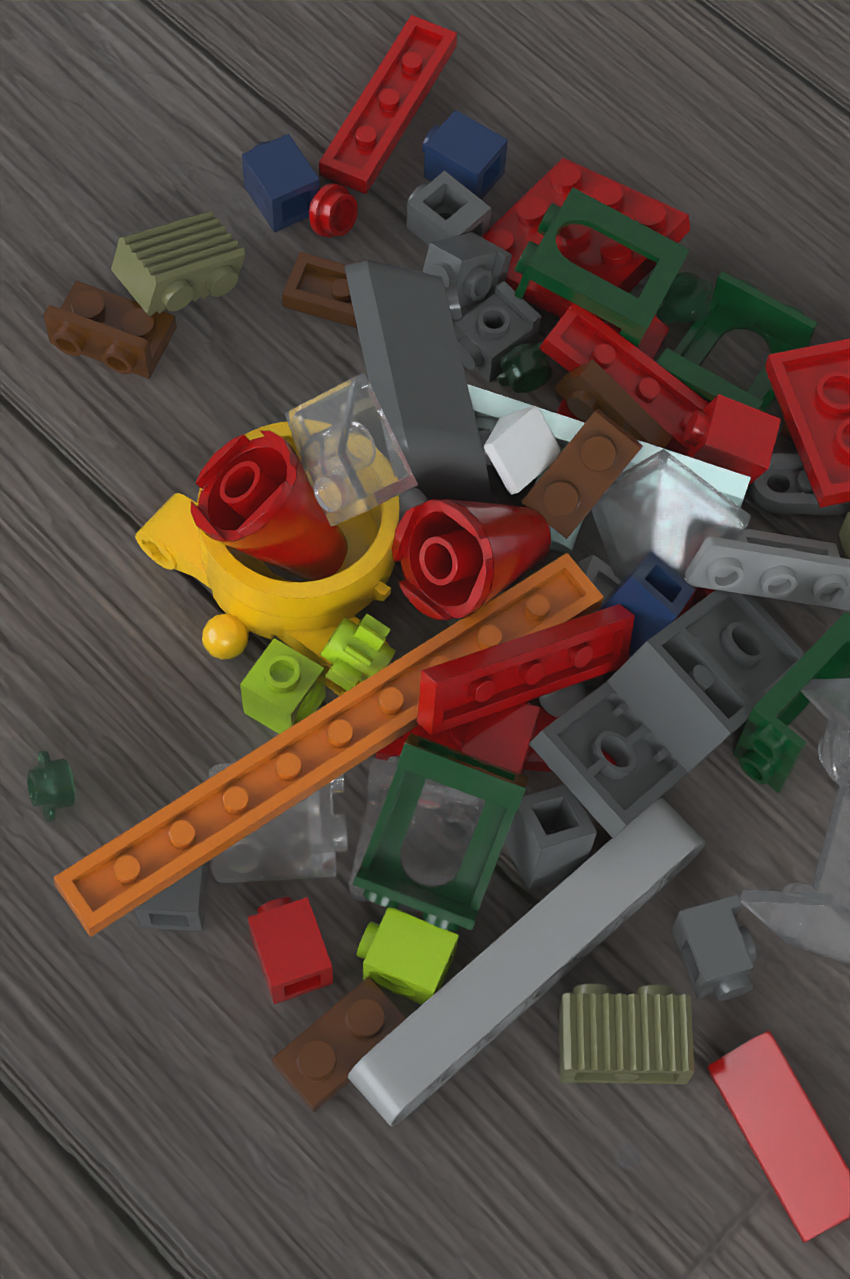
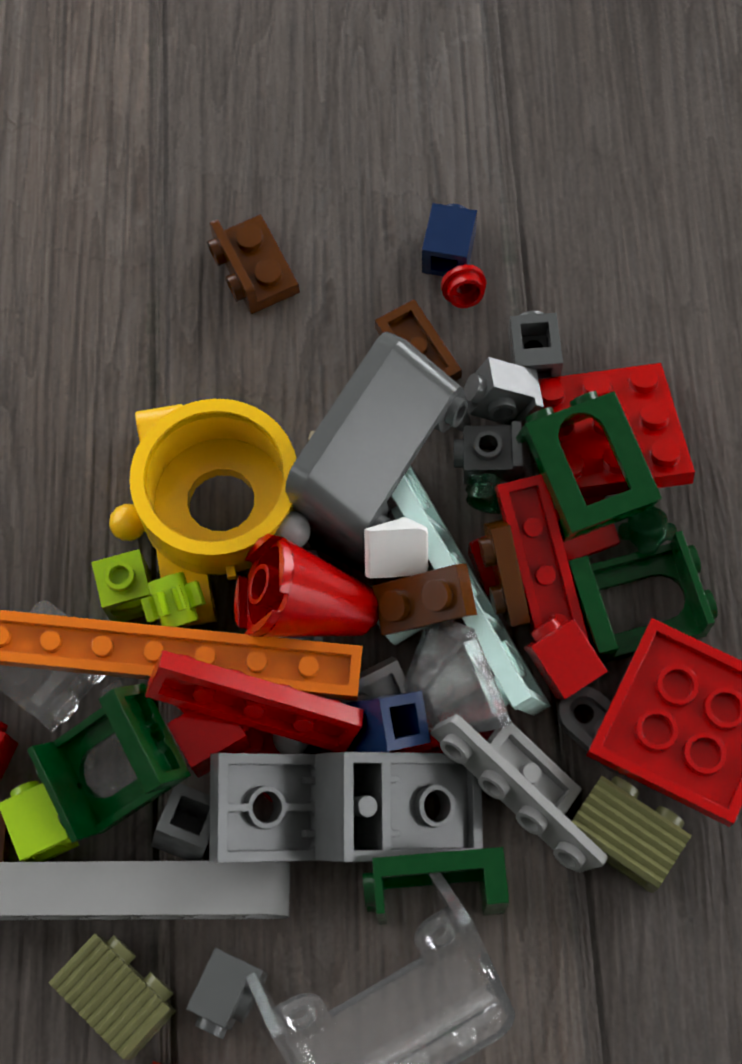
camera: 50 degrees right, 5 degrees up
(178, 262) = (326, 249): olive brick -> none
(266, 508) = (189, 464): red cone -> none
(349, 450) = (252, 467): clear slope -> none
(388, 104) = (576, 236): red plate -> none
(465, 152) = (589, 312): dark blue brick -> none

